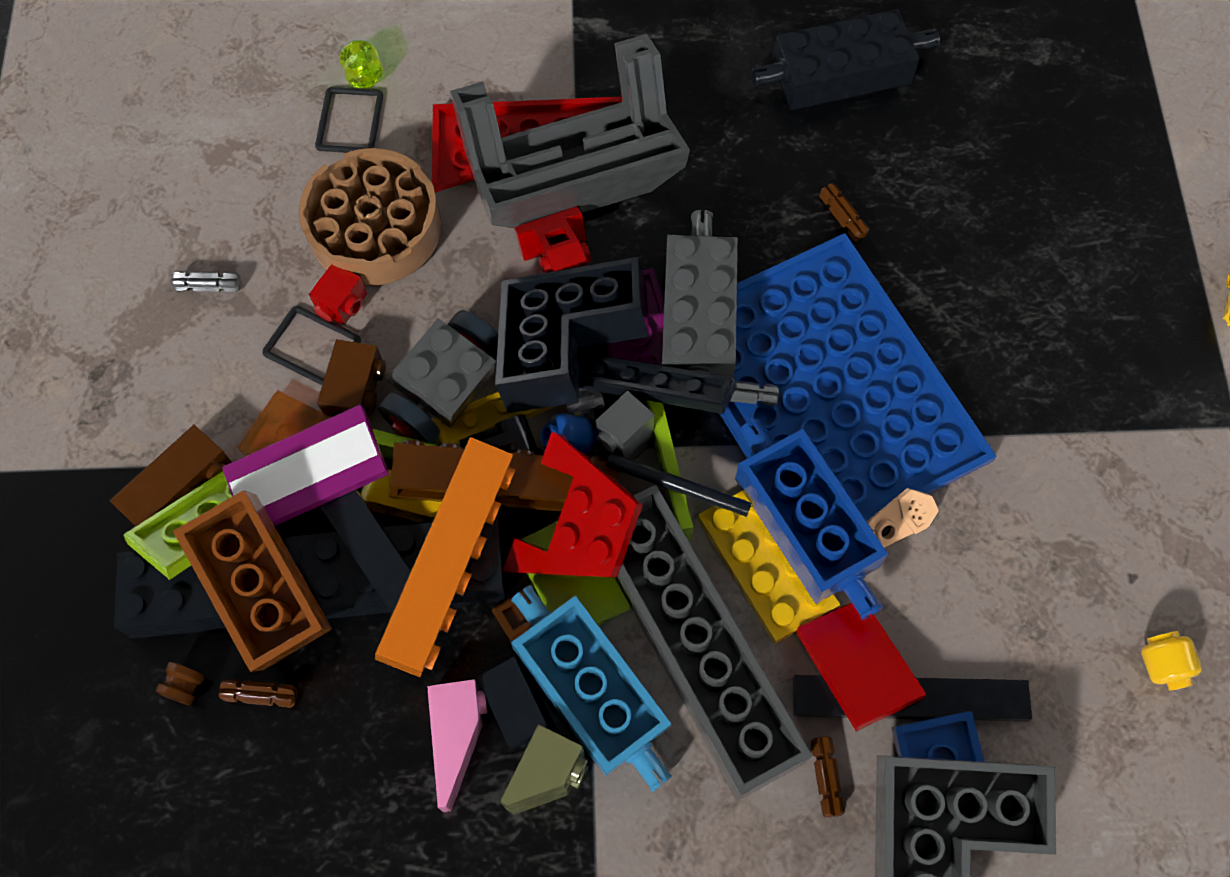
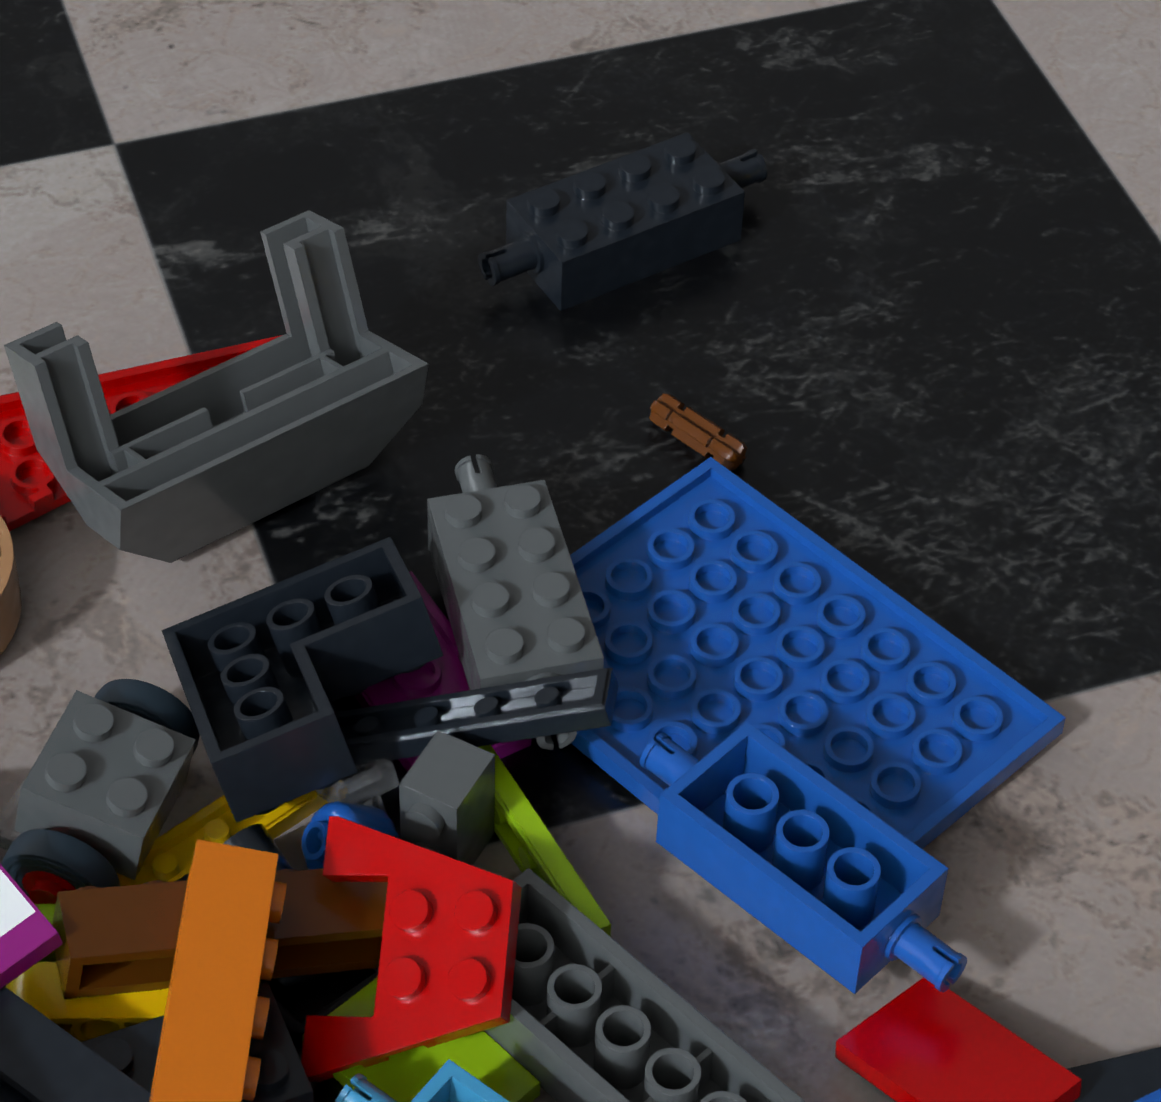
camera: 20 degrees left, 20 degrees down
(560, 251) = (199, 567): red tile -> none
(678, 484) = (572, 863): black bar -> none
(751, 393) = (639, 708): dark grey axle -> none
(762, 571) = (743, 972): yellow plate -> none
(907, 514) = (959, 830): light nougat piece -> none

